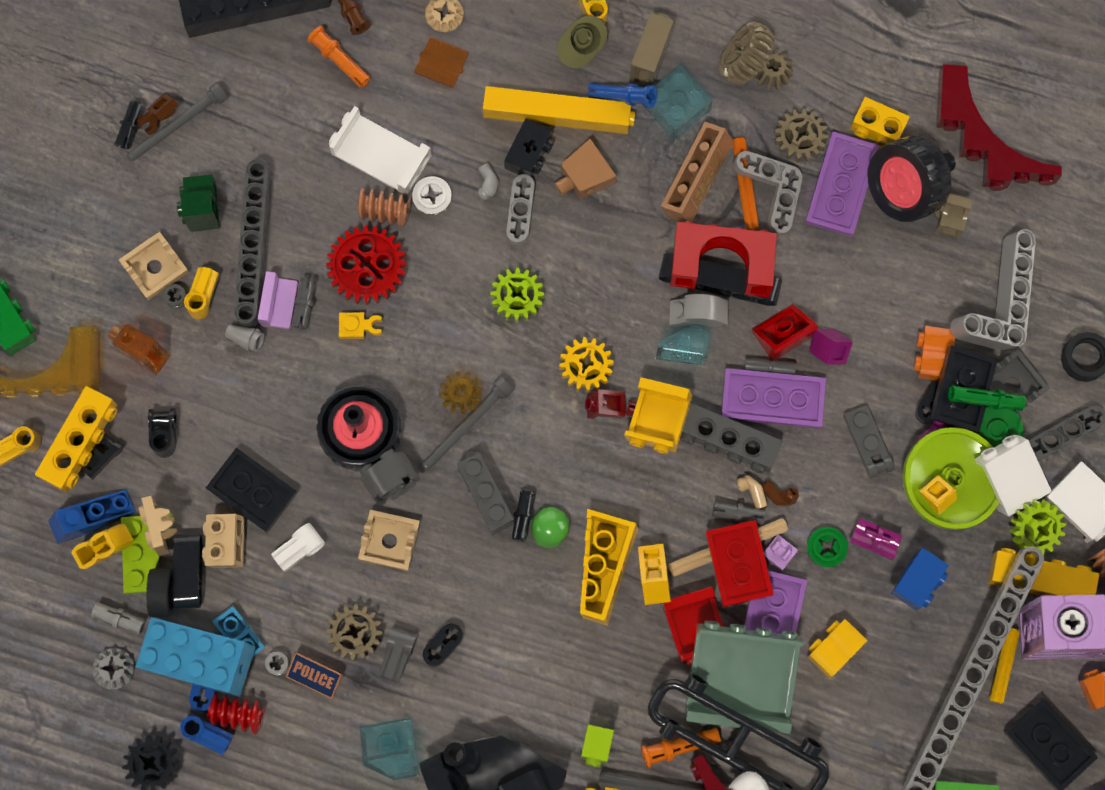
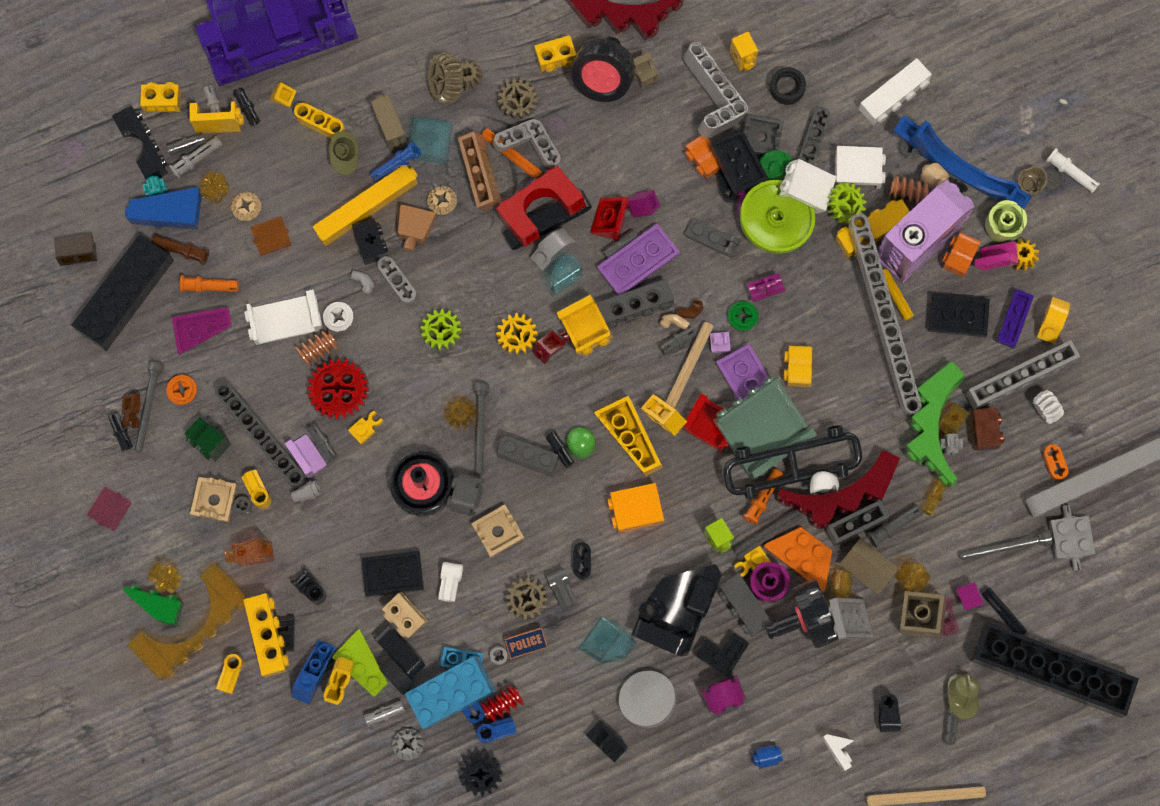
camera: 40 degrees left, 0 degrees up
(38, 299) = (164, 577): none -> clear yellow brick
(53, 188) = (109, 509): none -> clear pink piece
(158, 525) = (360, 638): tan piece -> none
(220, 125) = (174, 386): none -> orange gear
(293, 90) = (199, 327): none -> magenta wing
(542, 641) = (636, 508): none -> light orange brick
(629, 178) = (444, 207): none -> tan gear
(739, 563) = (704, 367): red plate -> none
(841, 185) = (566, 107): medium lavender plate -> none
(919, 579) = (809, 287): blue brick -> none
(939, 494) = (778, 232): yellow slope -> none
(996, 399) = (761, 152): green pin -> none
(1072, 283) = (743, 51): none -> yellow brick

